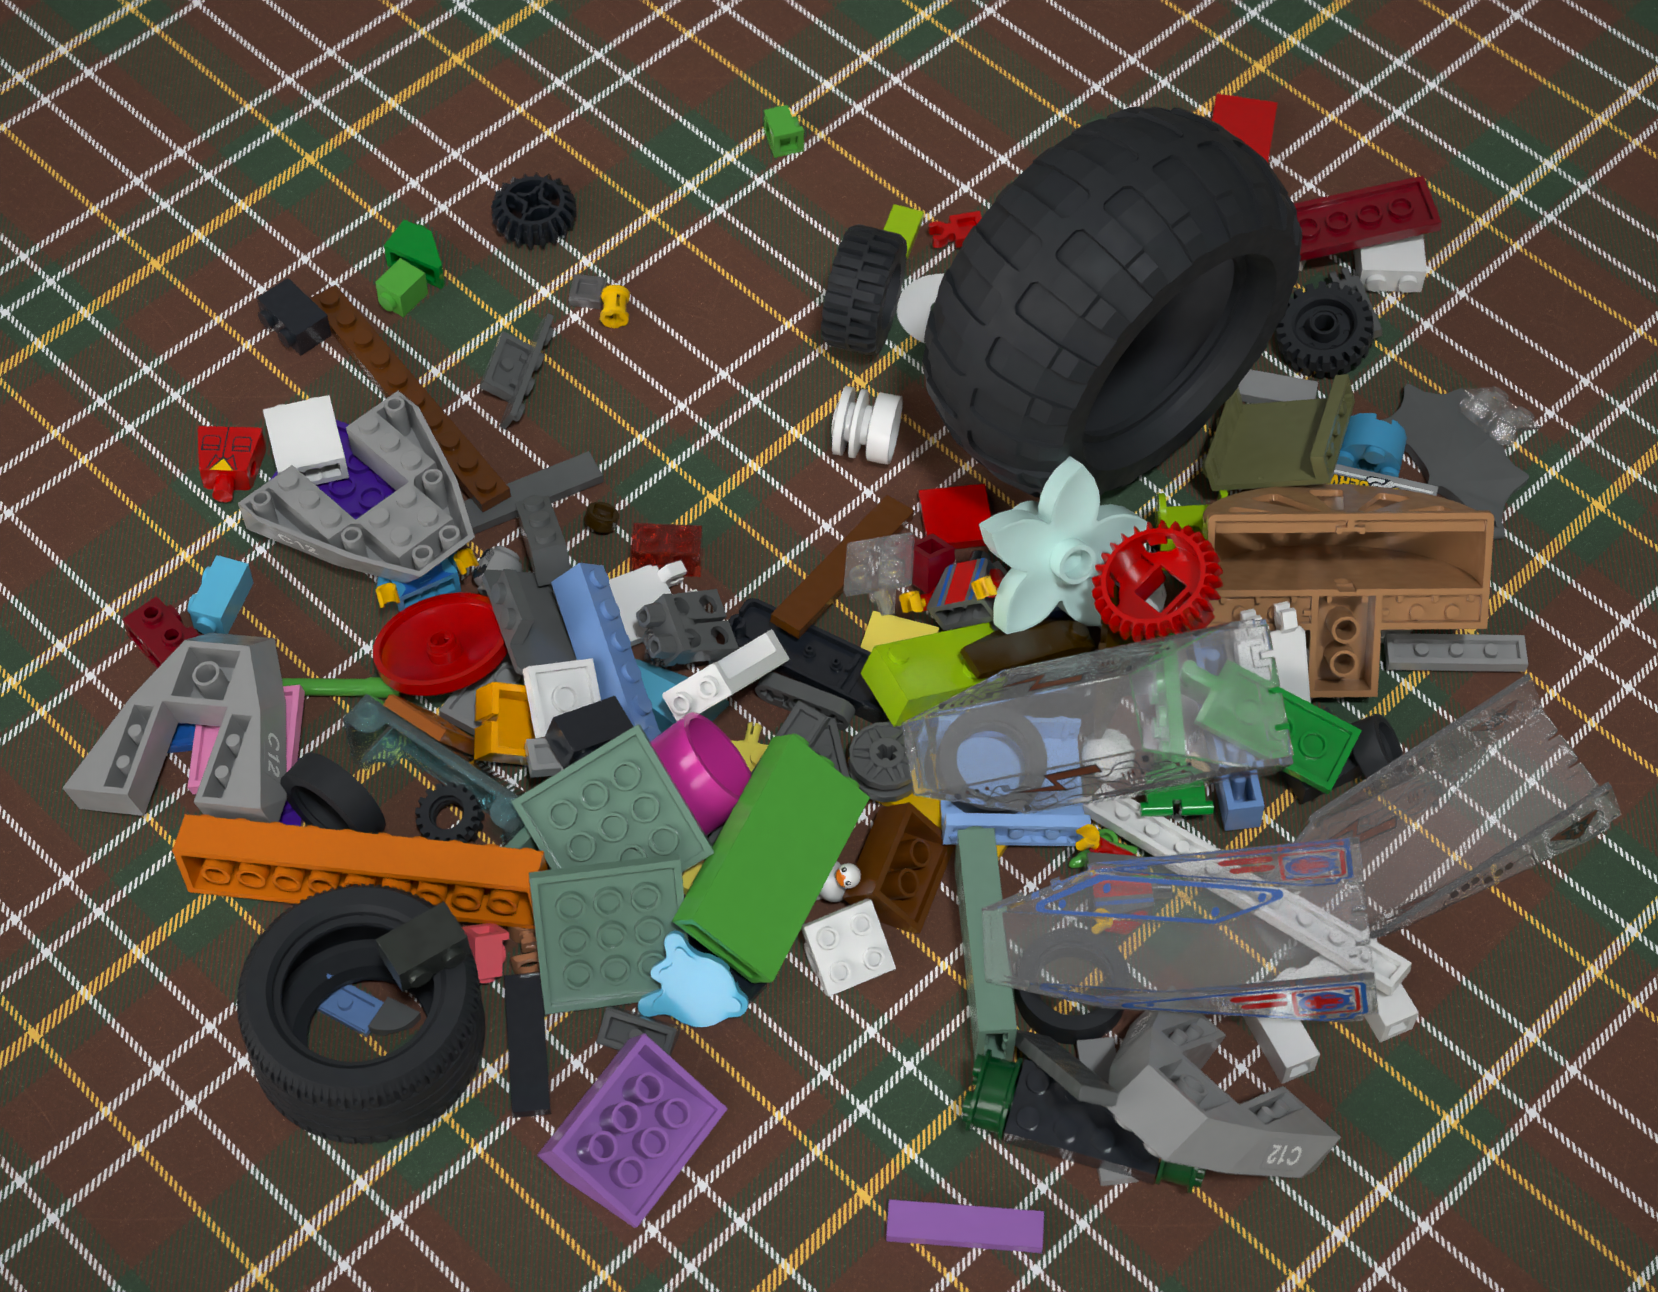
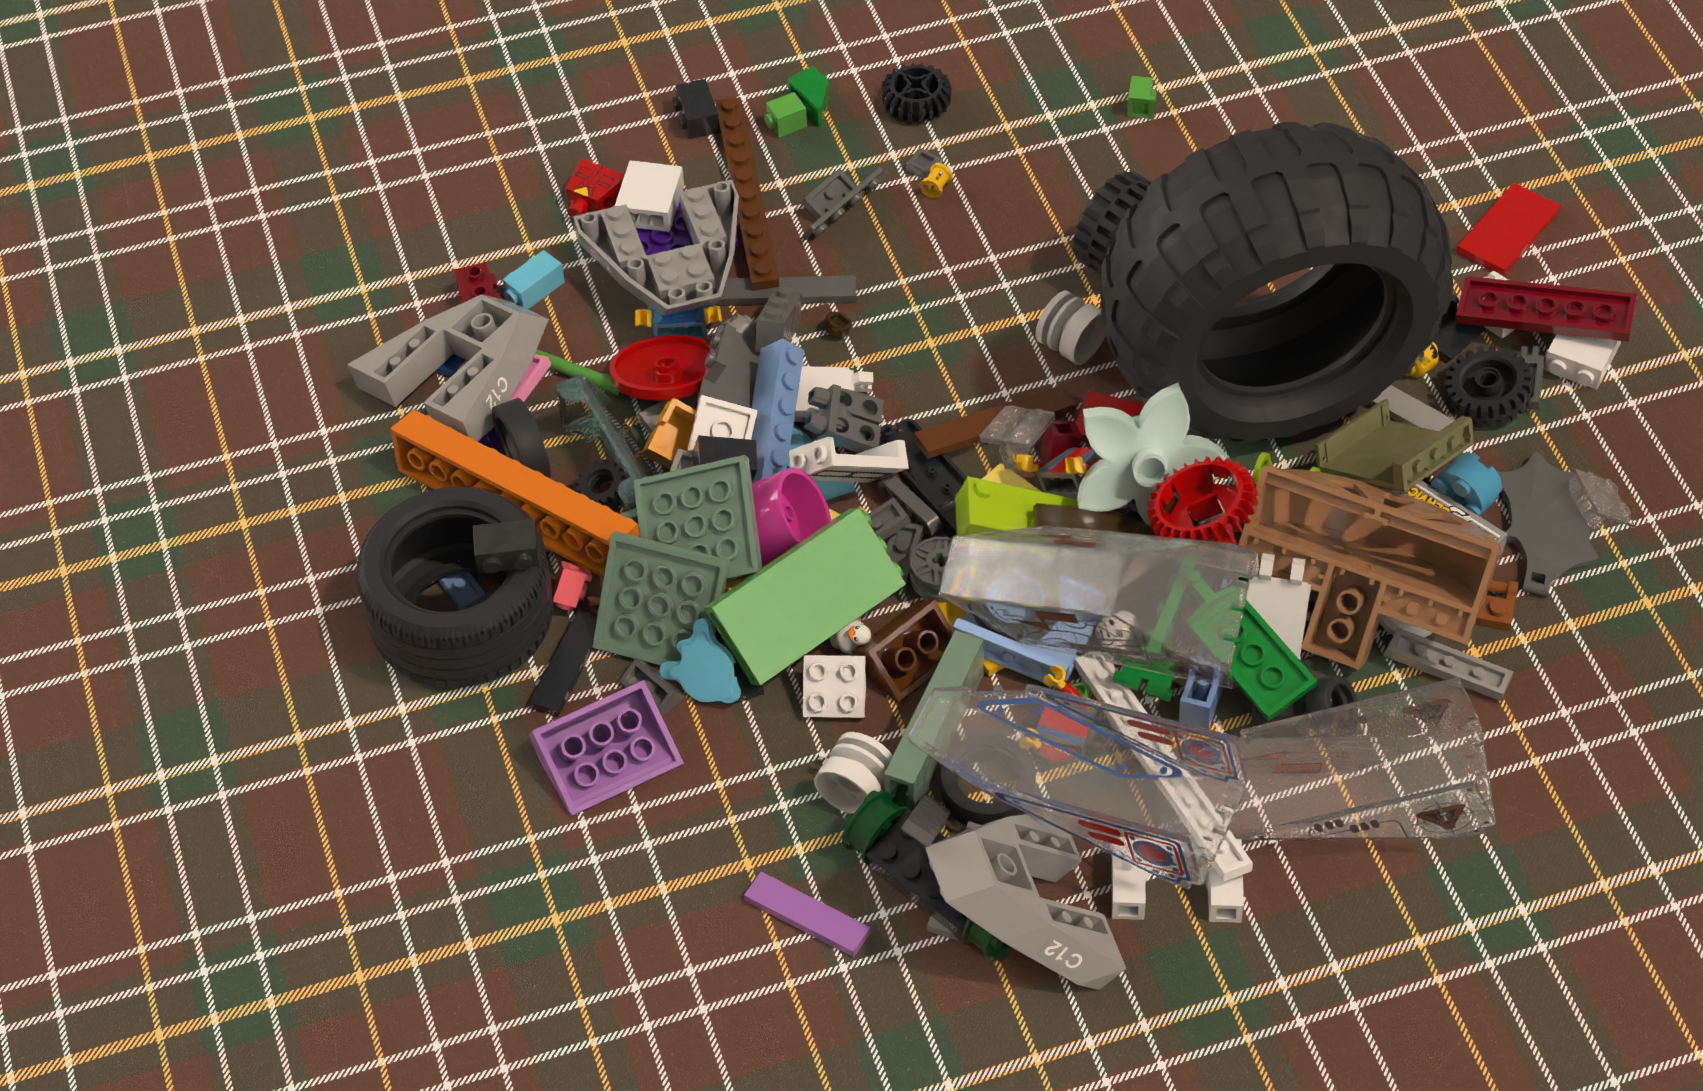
camera: 30 degrees right, 5 degrees down
(431, 723) = (619, 413): dark orange tile -> none
(667, 544) = (868, 356): clear red brick -> none
(934, 1041) = (852, 771): none -> white wheel

